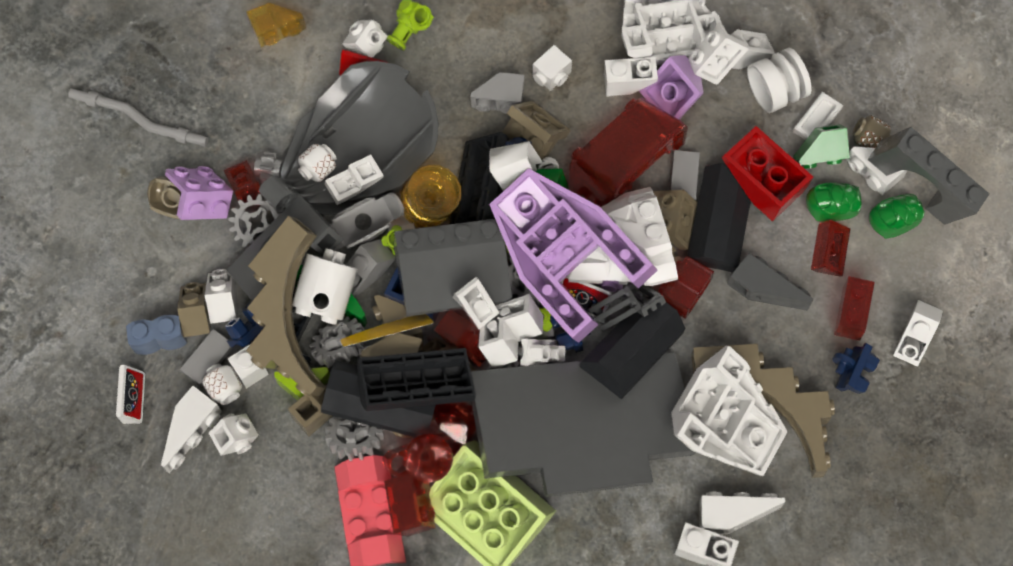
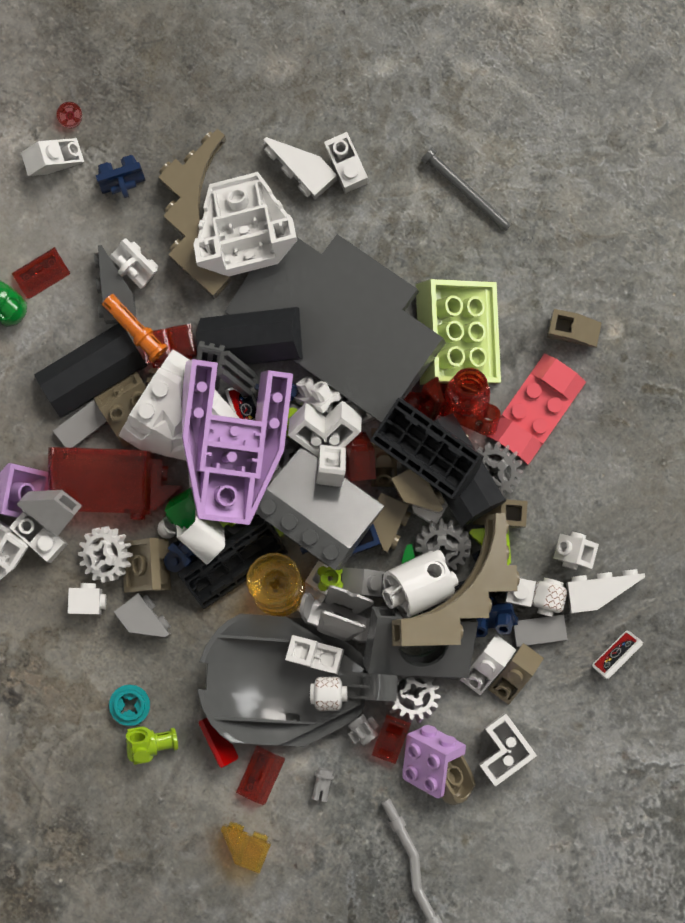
camera: 130 degrees left, 15 degrees up
(144, 250) = (512, 751): none -> white brick
(150, 336) = (565, 684): sand blue brick -> none
(265, 114) = (322, 782): none -> light grey pin
(310, 76) = (260, 775): none -> clear red slope
(365, 38) = (194, 762): white brick -> none
(387, 329) = (406, 512): yellow sticker -> none
(409, 505) = (509, 382): clear red brick -> none
(442, 29) = (117, 705): none -> teal gear
(572, 107) = (106, 553): none -> white gear
(641, 91) = (50, 508): none -> light grey slope
(708, 265) = (142, 336): none -> orange pin
(766, 173) = (29, 362): red slope -> none
(774, 313) = (133, 263): none -> white hips
(854, 308) = (75, 214): clear red brick -> none
(942, 377) = (69, 115): none -> clear red tile

